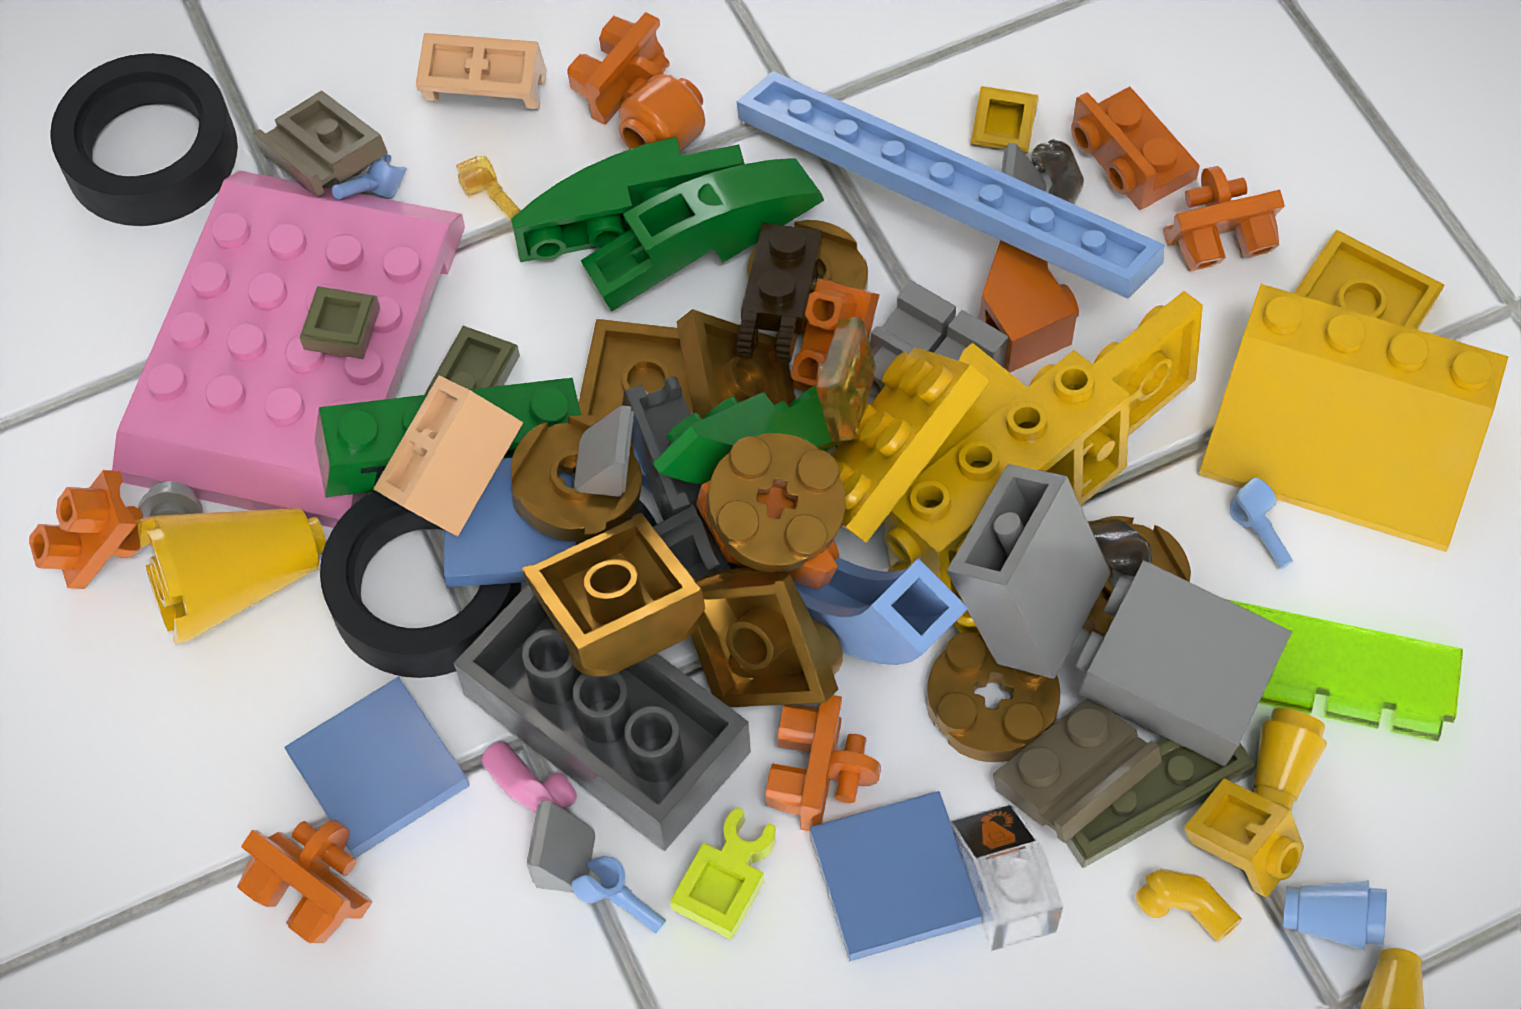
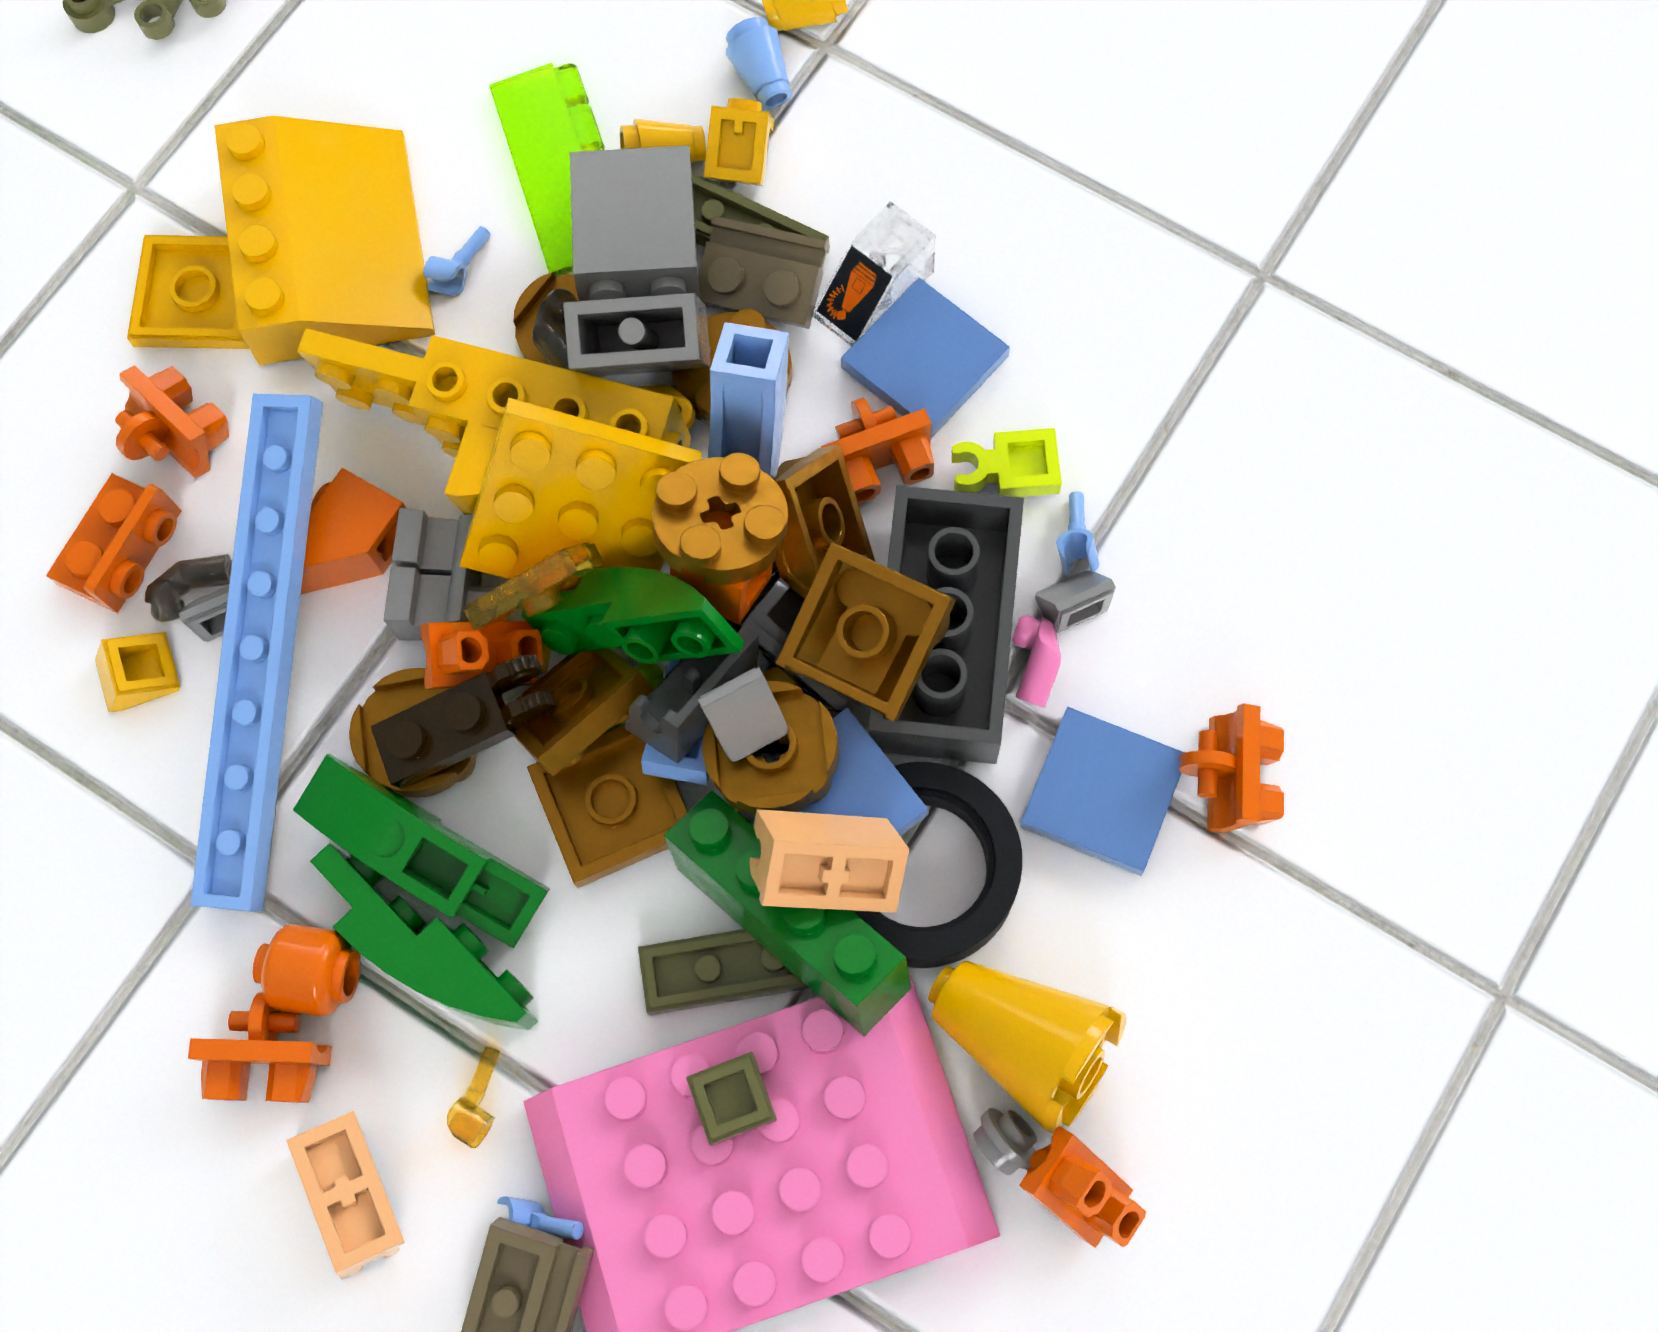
camera: 120 degrees left, 10 degrees up
(1189, 893) = (808, 161): yellow arm -> none

